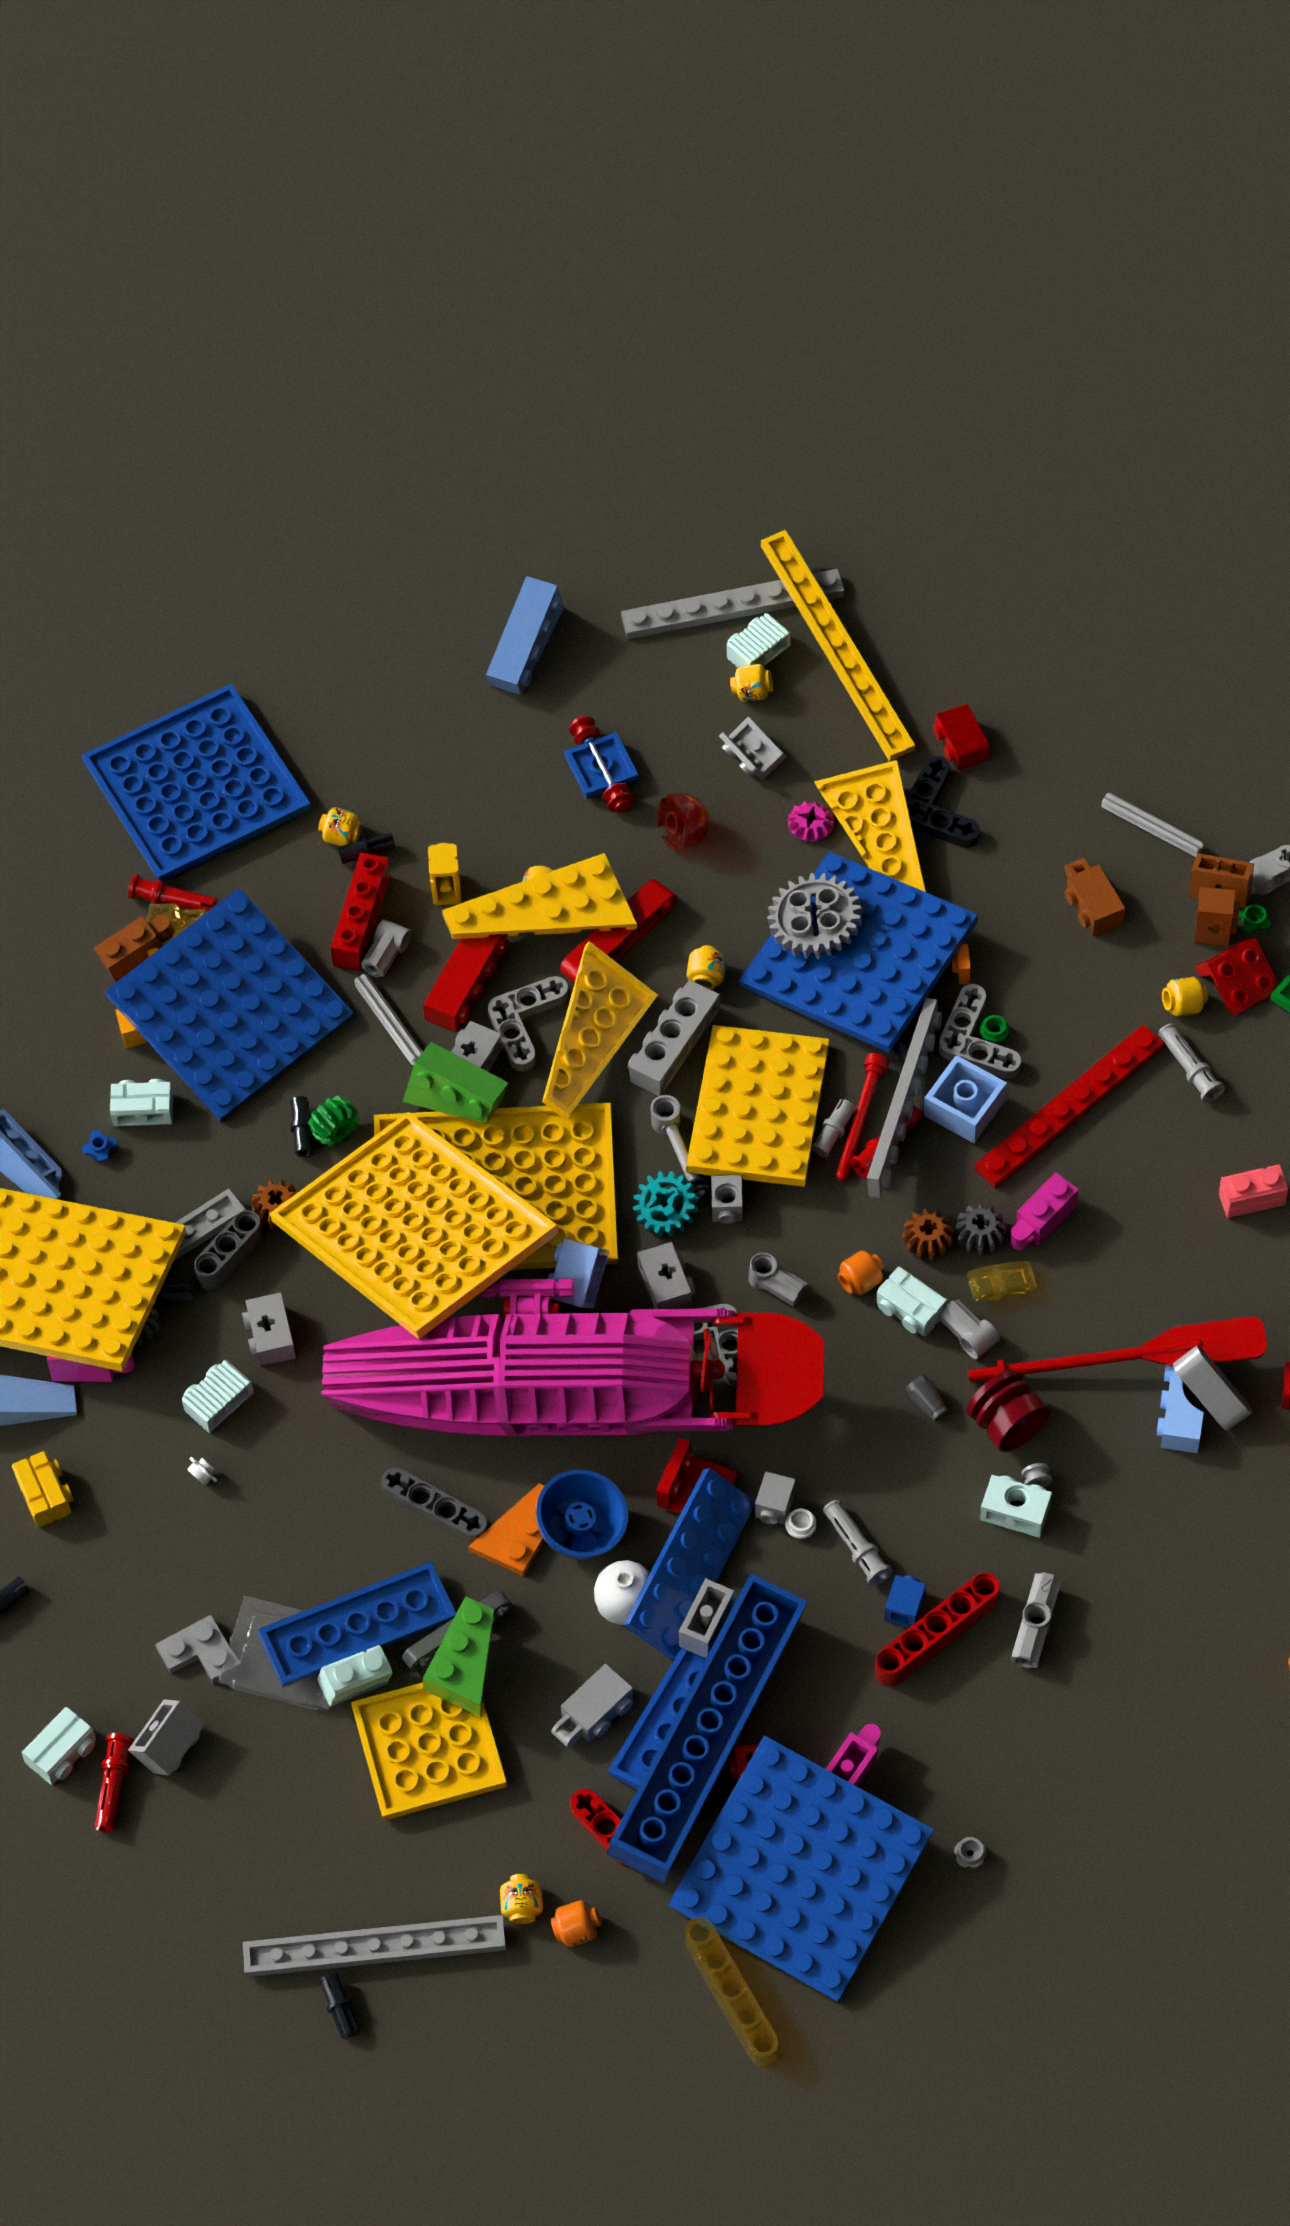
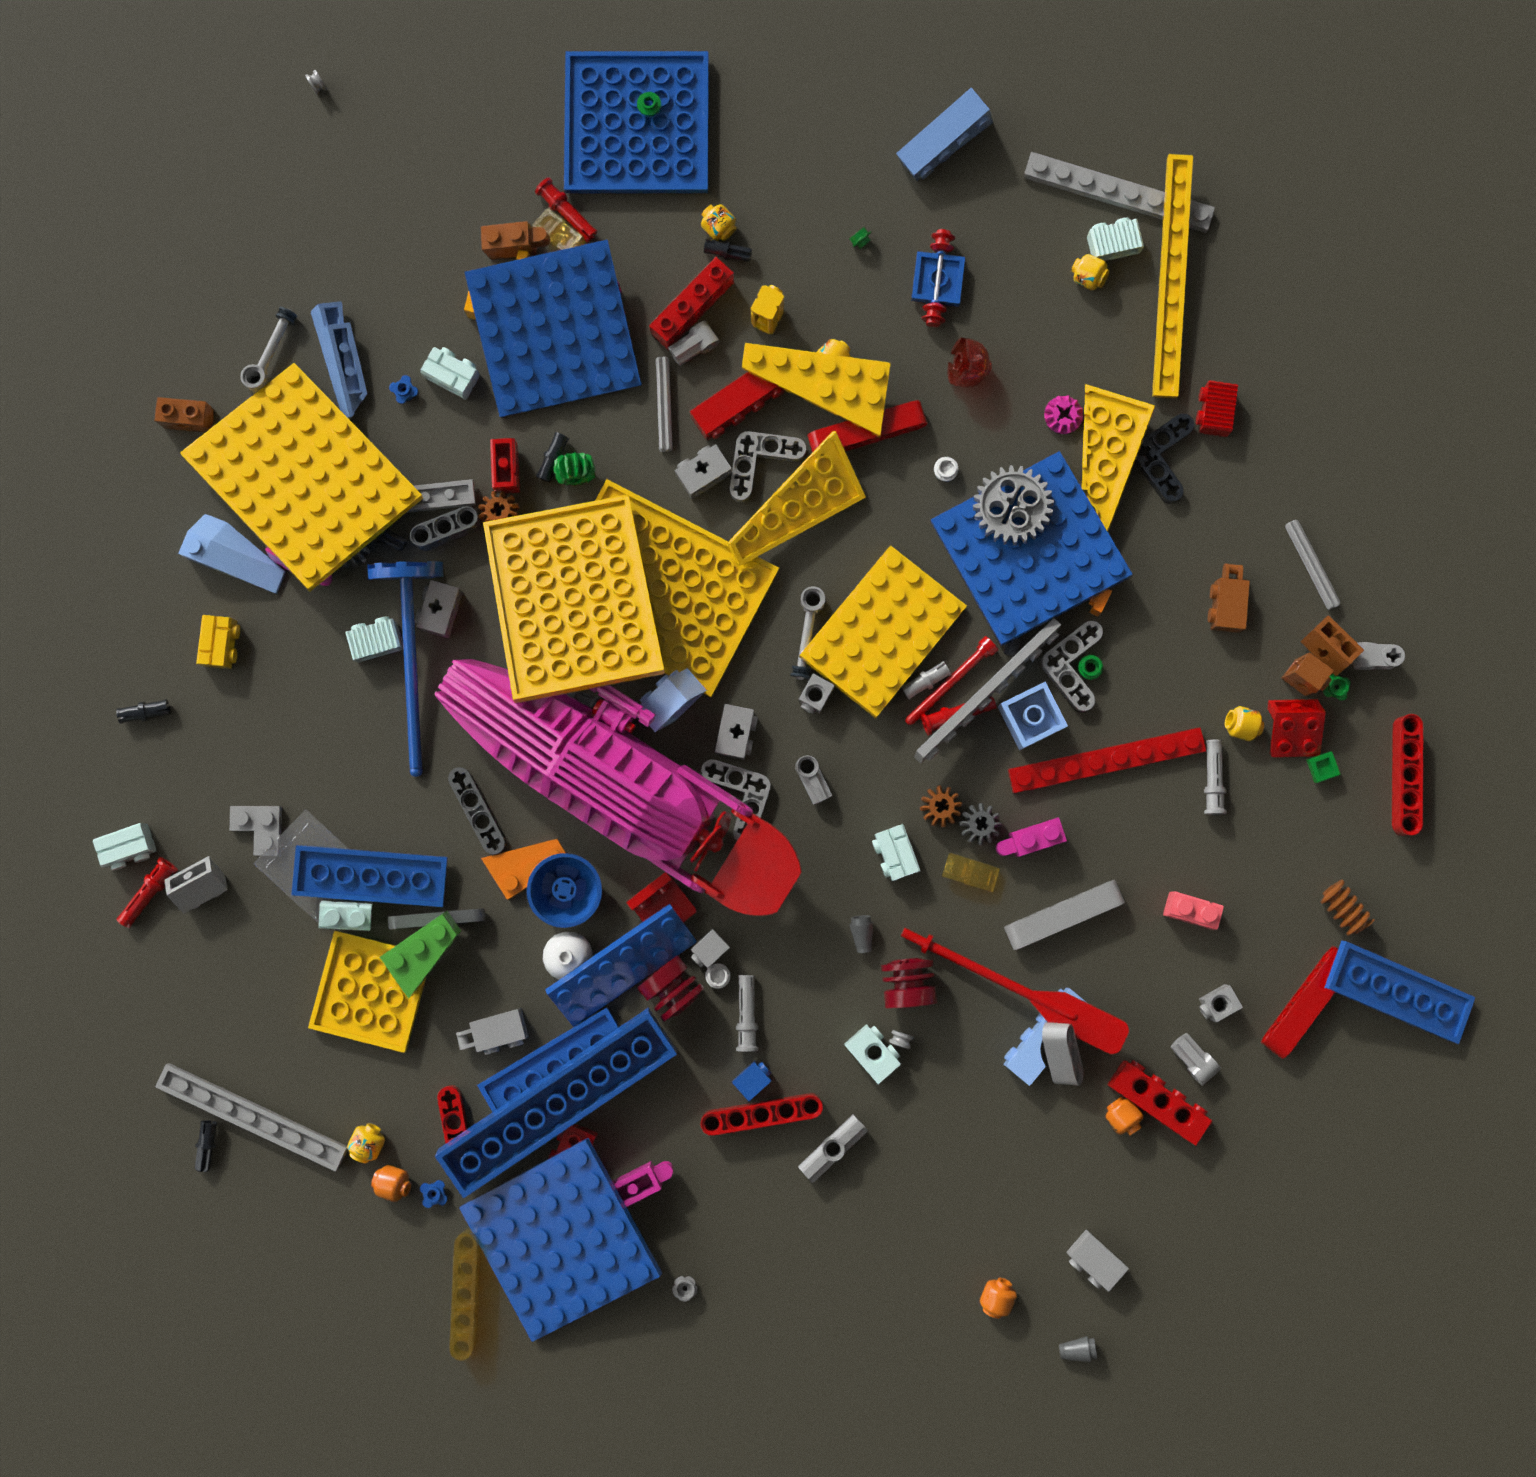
camera: 30 degrees right, 25 degrees up
(201, 762) = (652, 110): none -> green plate
(202, 1470) = (332, 692): white plate -> none
(217, 1304) = (405, 573): none -> blue piece
(257, 1154) = (505, 465): none -> red brick
(453, 1085) = (673, 493): bright green wedge -> none
(497, 769) = (860, 238): none -> green plate
(630, 1921) = (438, 1188): none -> blue plate
(657, 1074) = (884, 514): light grey brick -> none
(673, 1211) = (770, 683): teal gear -> none
(706, 967) = (912, 496): yellow head -> none
(706, 1618) = (602, 1021): light grey brick -> none
(723, 928) = (946, 469): none -> white plate
(754, 748) = (1056, 329): light grey bracket -> none
(756, 1551) = (671, 988): none -> dark red wheel
(861, 1273) = (875, 809): orange head -> none
(974, 1335) = (925, 903): light grey piece -> none
(1124, 1267) = (1064, 914): none -> light grey beam

